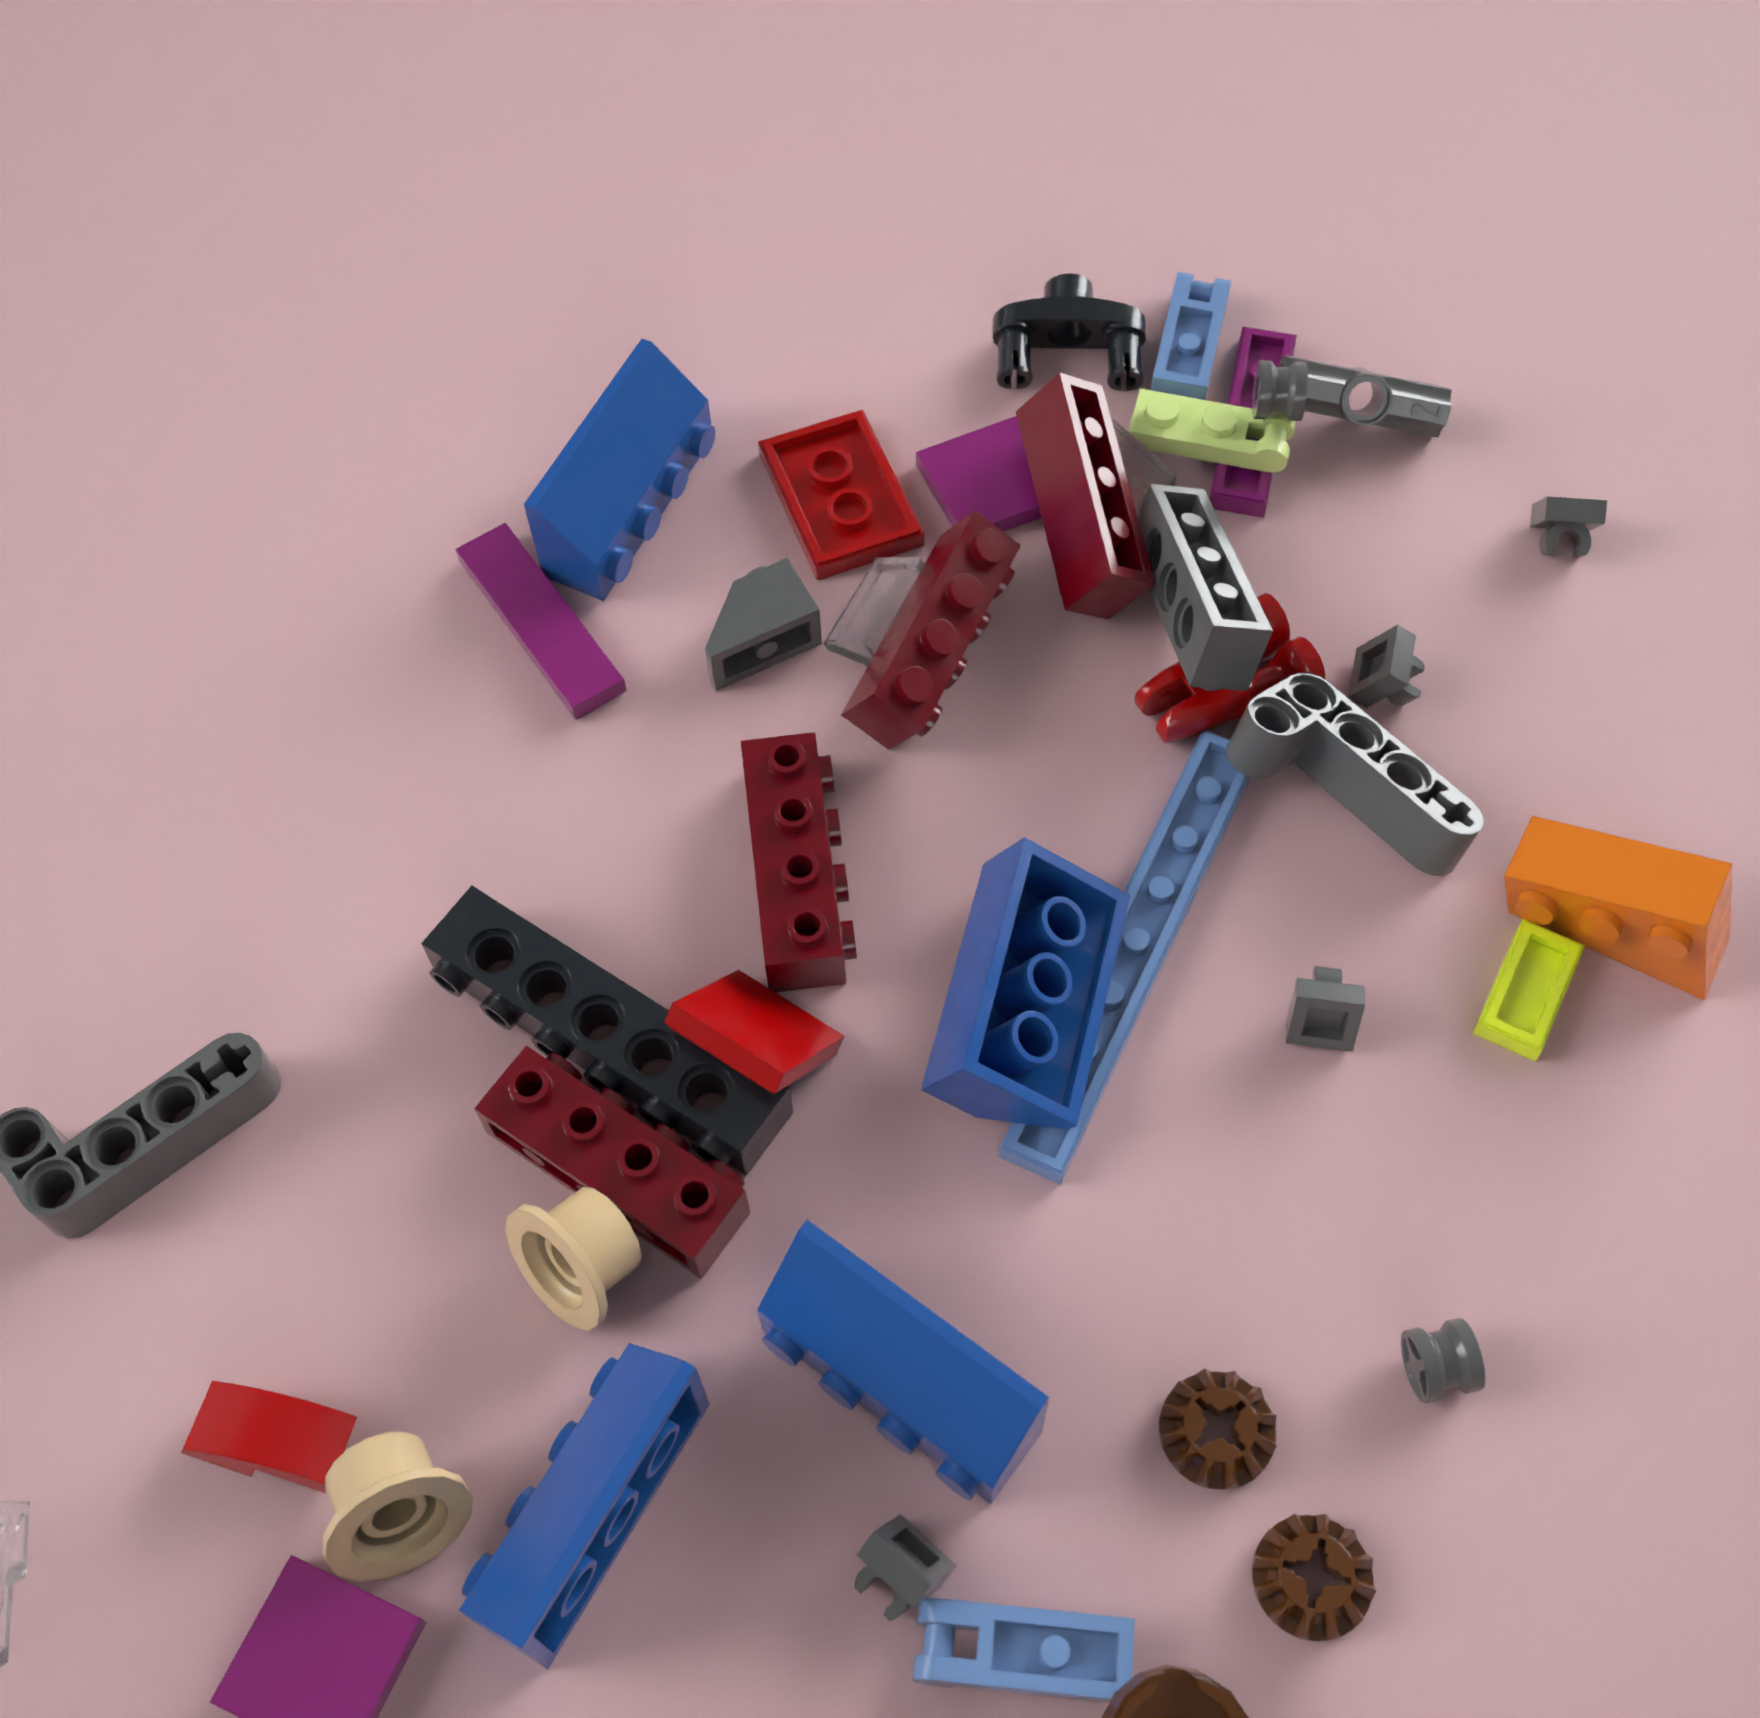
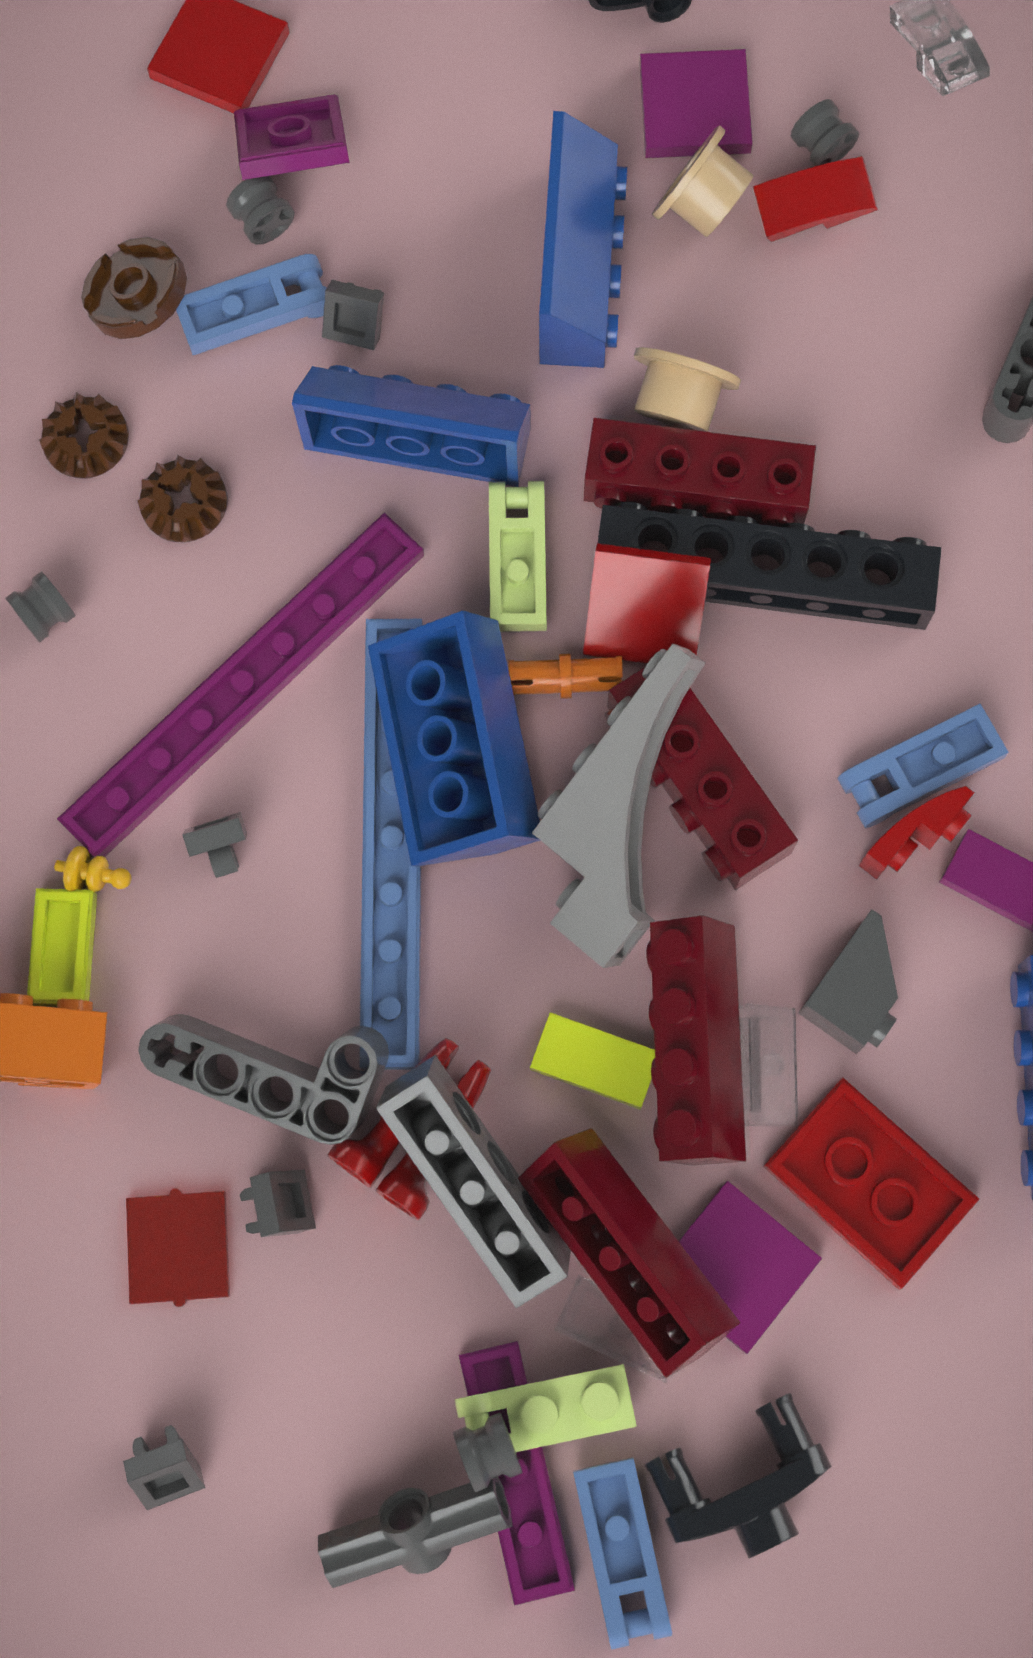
camera: 155 degrees right, 15 degrees up
(201, 1515) = (824, 133): none -> dark grey wheel
(575, 779) = (924, 764): none -> medium blue plate
(601, 728) = (926, 824): none -> red slope
(862, 1159) = (517, 557): none -> yellowish green plate
(872, 1018) = (565, 675): none -> orange pin
(917, 844) = (602, 810): none -> light grey arch
(1031, 673) = (594, 1060): none -> neon yellow tile
(1224, 1175) = (241, 687): none -> magenta tile
(1469, 1041) = (95, 873): none -> yellow hair
(1494, 688) = (177, 1247): none -> clear red piece

